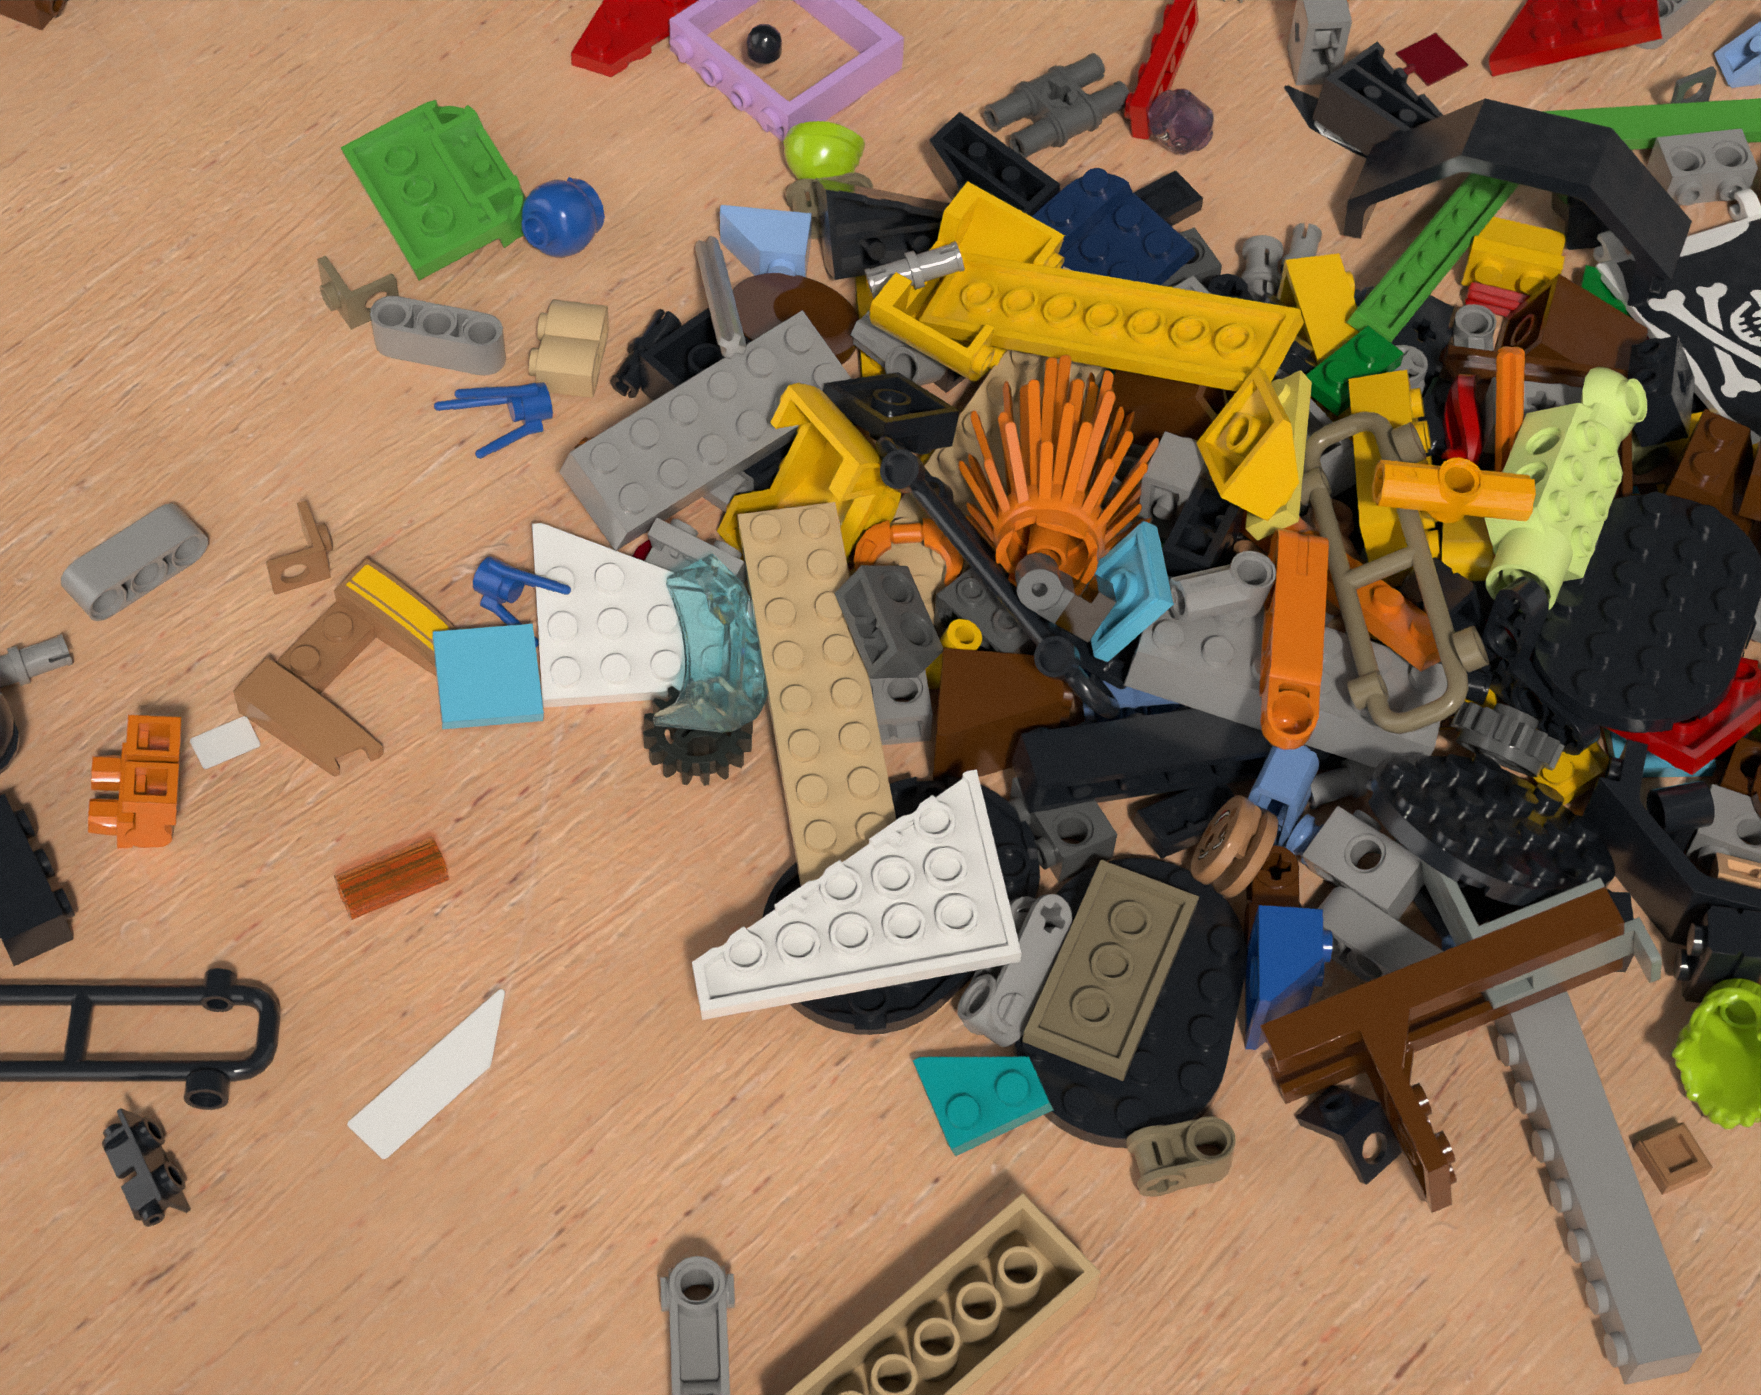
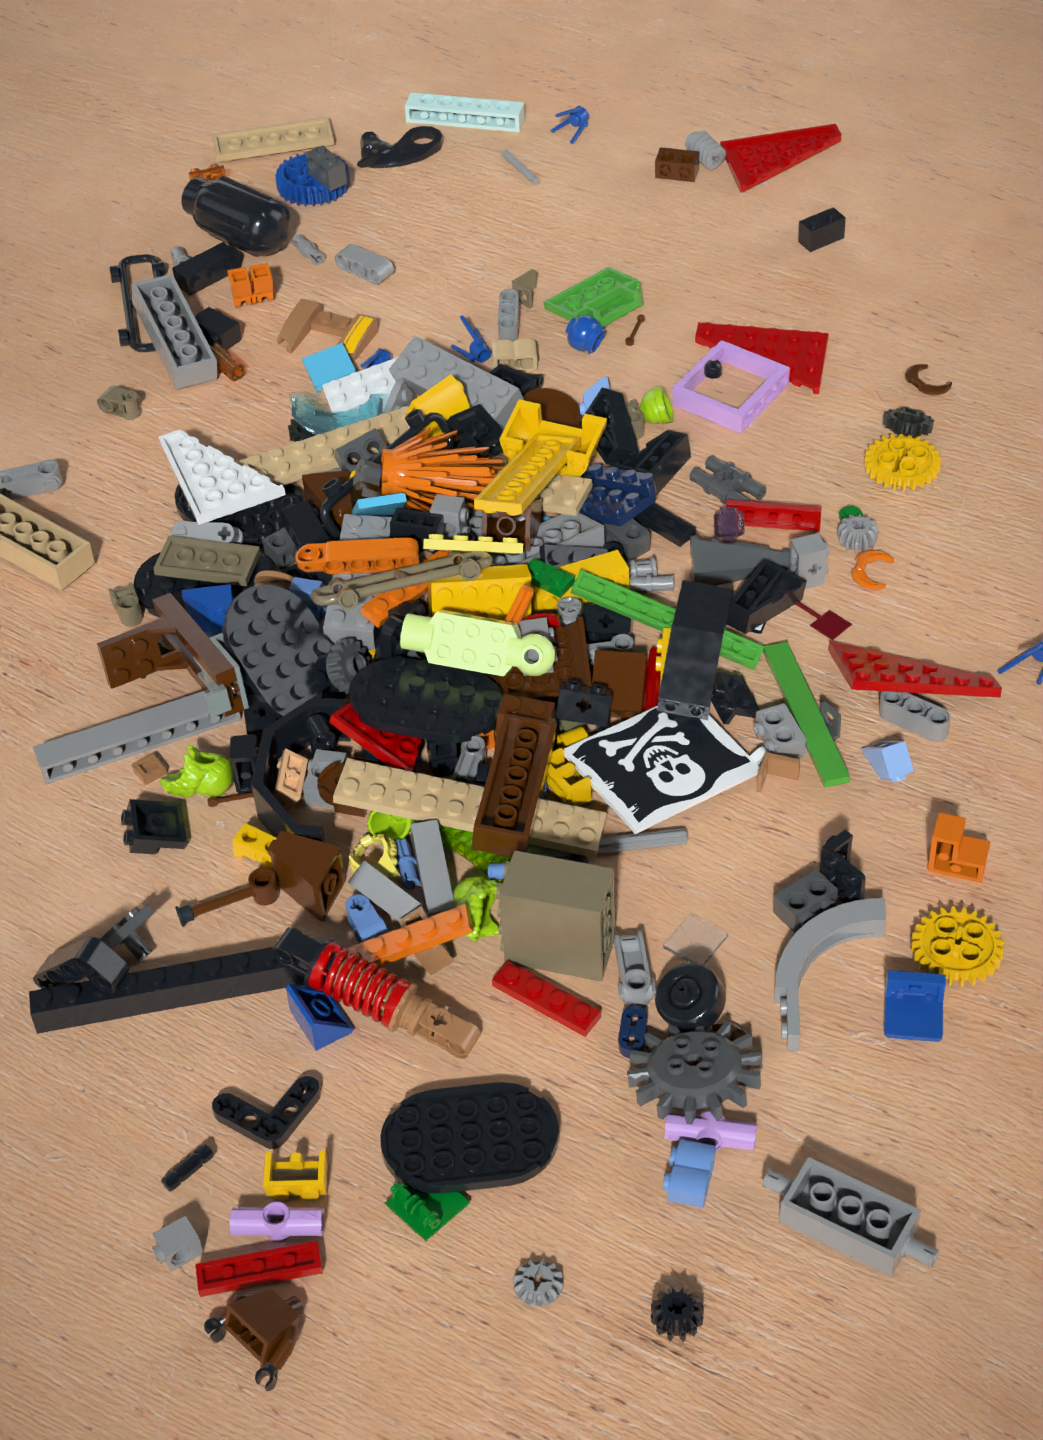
camera: 85 degrees right, 10 degrees down
(138, 1147) = (90, 330): black hinge -> none
(225, 742) = (284, 310): white sticker -> none
(263, 883) = (218, 328): none -> black brick
(277, 954) = (174, 331): none -> light grey brick
(313, 557) = (382, 307): medium nougat bracket -> none
(431, 1081) = (148, 399): white sticker -> none
(460, 1122) = (119, 403): none -> dark tan piece
(574, 168) = (630, 340): none -> reddish brown hinge
(720, 298) = (534, 375): light grey axle -> none
(917, 267) = (557, 420): light grey pin -> none
(981, 1096) = (146, 540): teal wing -> none
(1224, 589) = (373, 523): light grey piece -> none
(1252, 449) = (439, 510): yellow slope -> none
(1281, 141) = (725, 563): none -> dark grey wedge
(1474, 493) = (434, 578): light orange piece -> none

